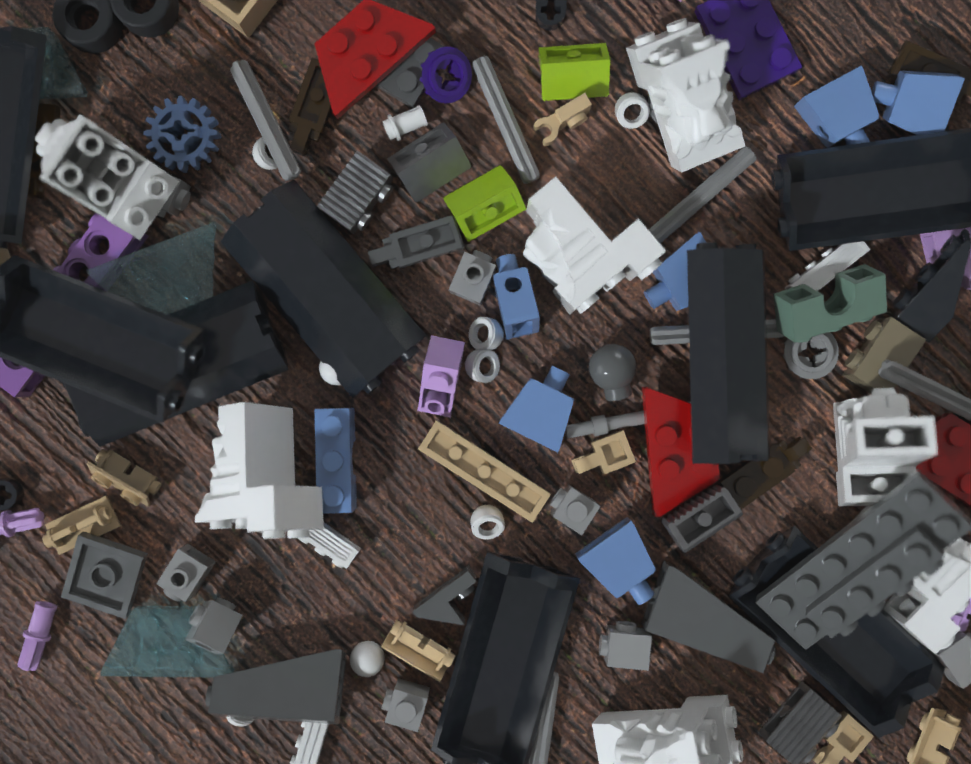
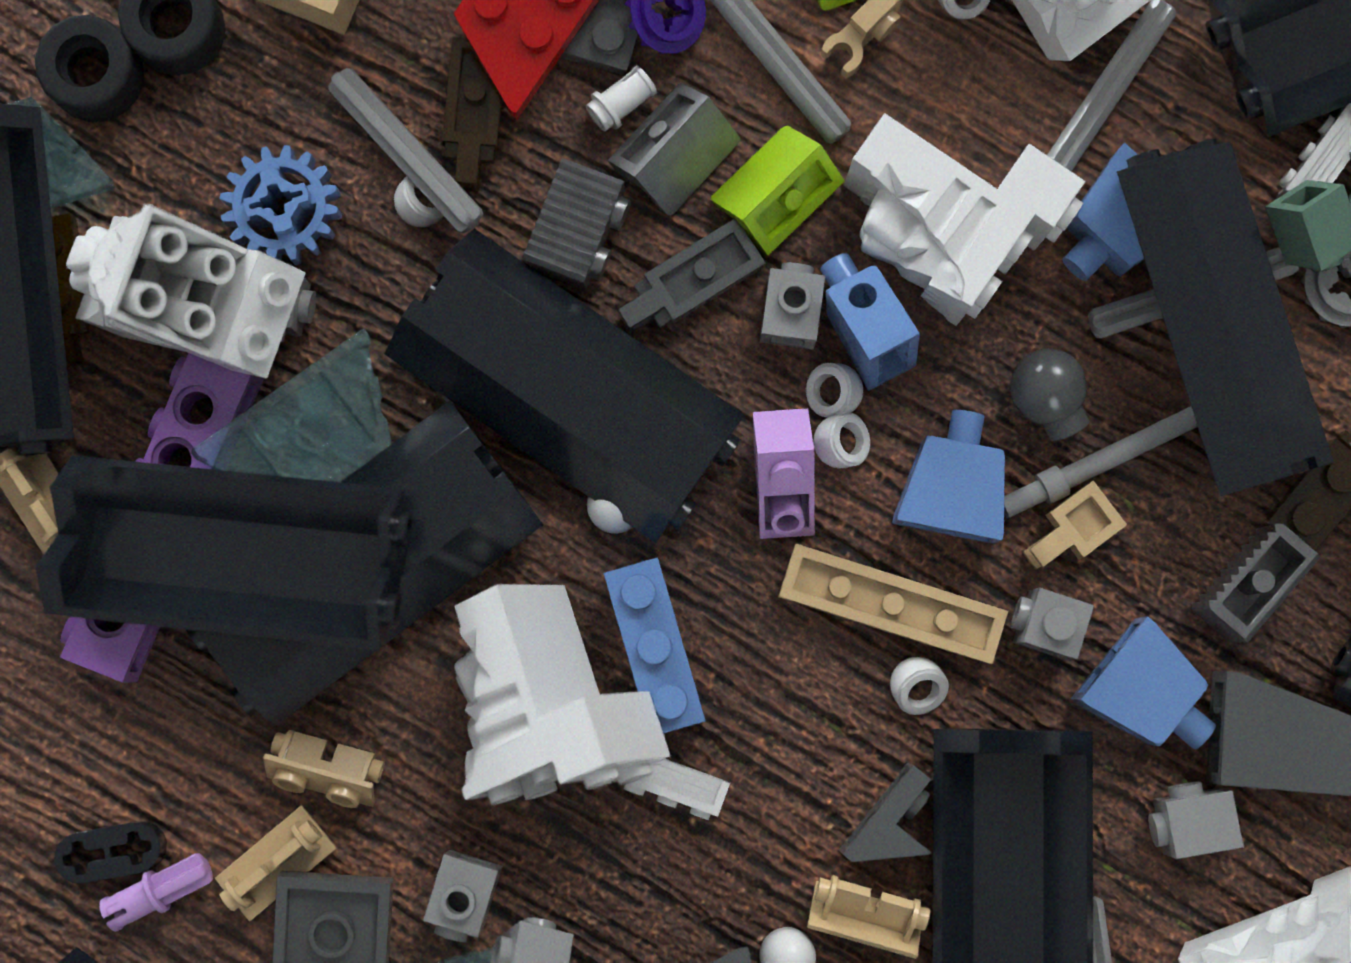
camera: 15 degrees left, 5 degrees down
(670, 452) = (1178, 494): red wing -> none

